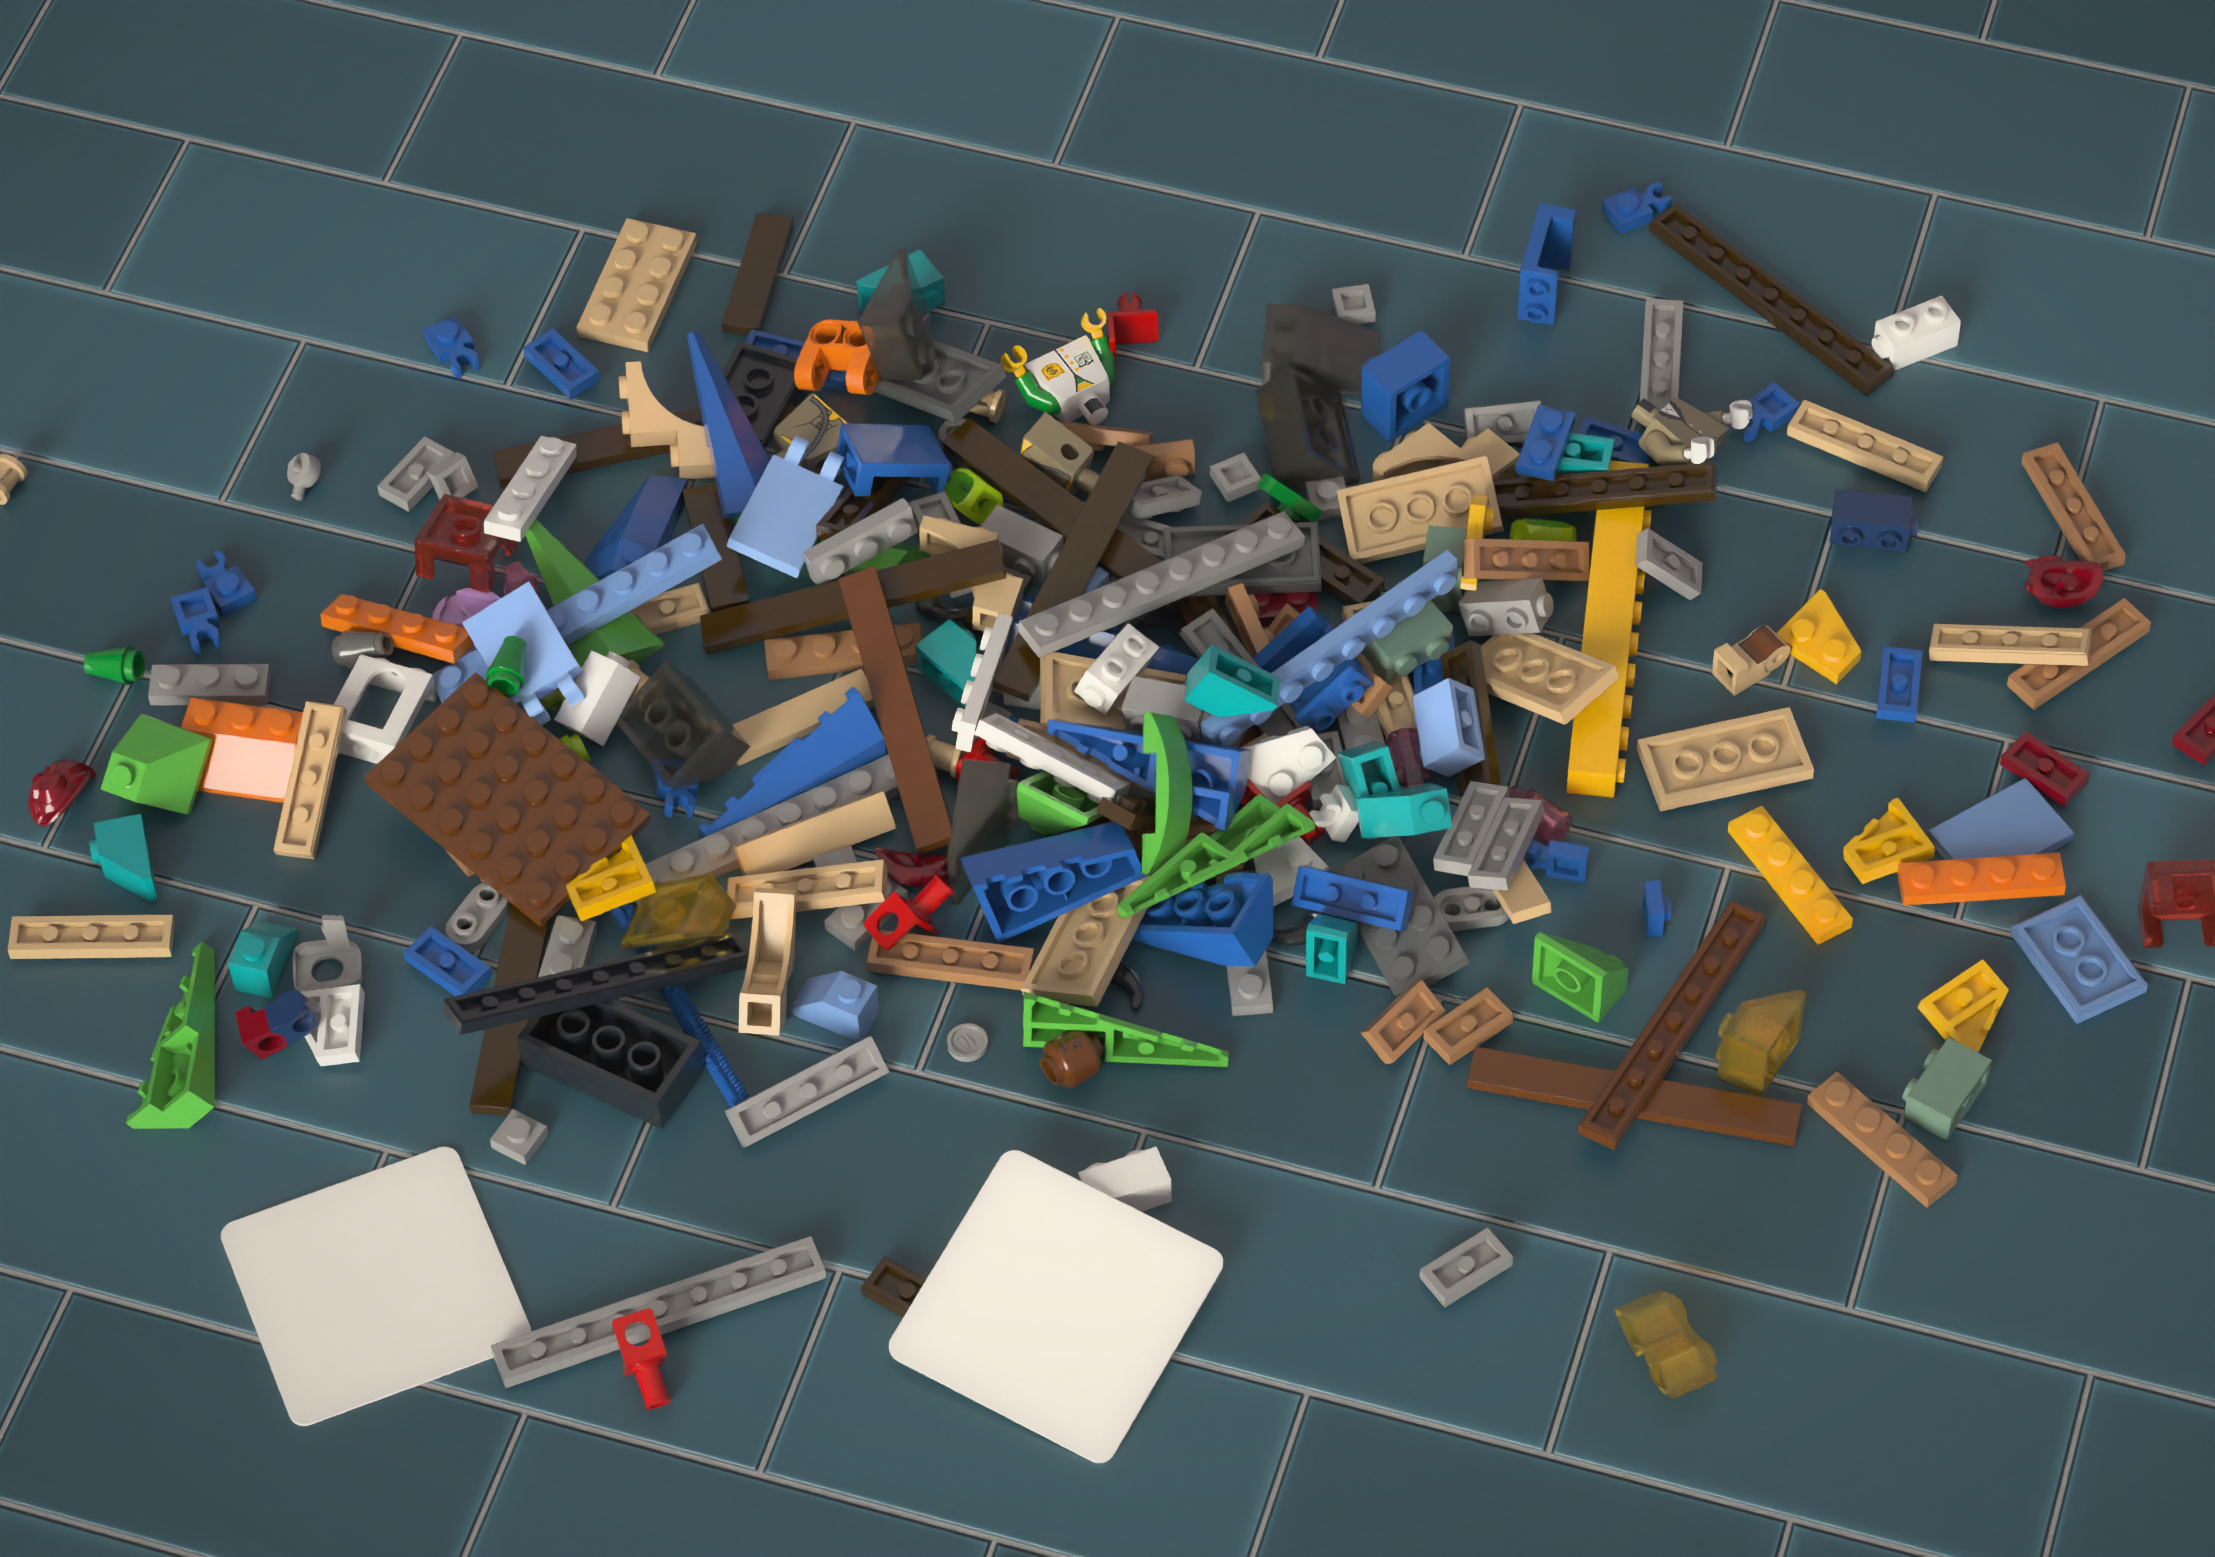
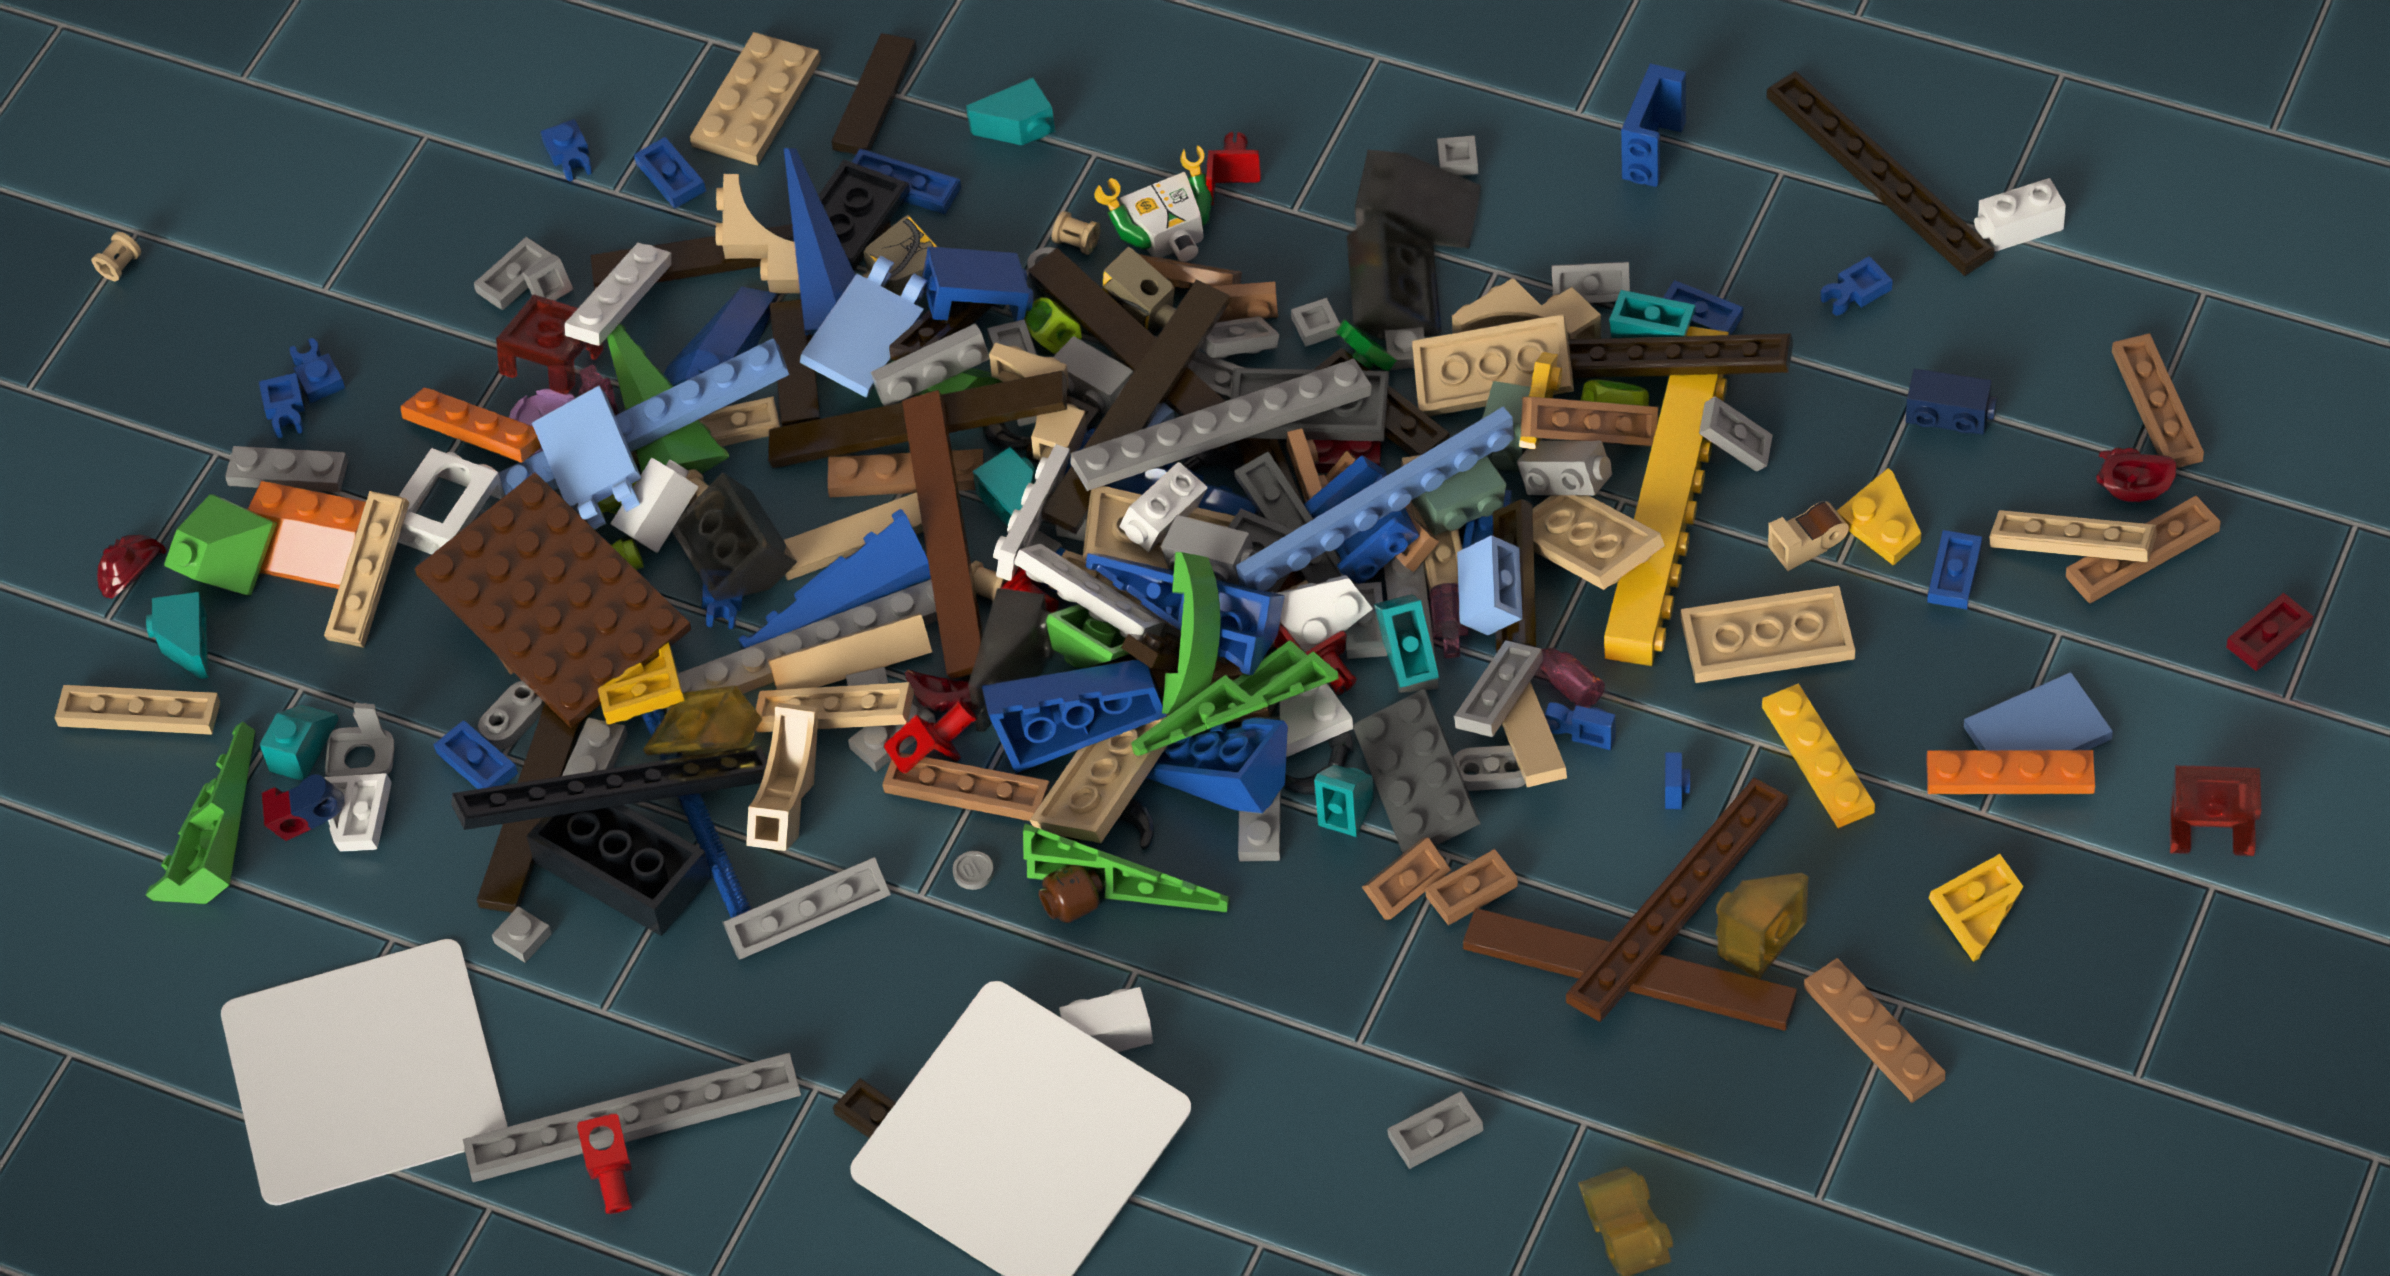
camera: 10 degrees right, 0 degrees up
(116, 664) = (201, 444): green cone -> none
(303, 473) = (404, 267): light grey piece -> none
(351, 644) = (441, 438): dark grey cone -> none
(508, 667) = (567, 469): green cone -> none
(836, 347) = (943, 171): orange piece -> none
(838, 1004) = (850, 824): medium blue slope -> none
(899, 324) = (998, 149): clear smoke slope -> none
(950, 385) = (1023, 202): dark grey plate -> none
(1230, 685) = (1267, 530): teal slope -> none
(1337, 813) = (1370, 664): white tile -> none
(1352, 898) = (1369, 750): blue plate -> none
(1404, 811) = (1431, 667): teal slope -> none
(1405, 385) = (1494, 239): blue brick -> none
(1506, 844) = (1529, 706): light grey plate -> none
(1546, 443) = (1624, 304): blue plate -> none
(1578, 975) = (1588, 842): bright green slope -> none
(1632, 209) = (1752, 75): blue plate -> none
(1661, 351) = (1758, 230): light grey plate -> none
(1685, 434) = (1770, 303): dark tan torso -> none
(1865, 445) = (1953, 326): tan plate -> none
(1887, 843) = (1920, 729): yellow wing -> none
(1946, 1088) = (1946, 982): sand green brick -> none
(2045, 769) = (2091, 664): dark red plate -> none
(2079, 959) = (2101, 860): medium blue tile -> none

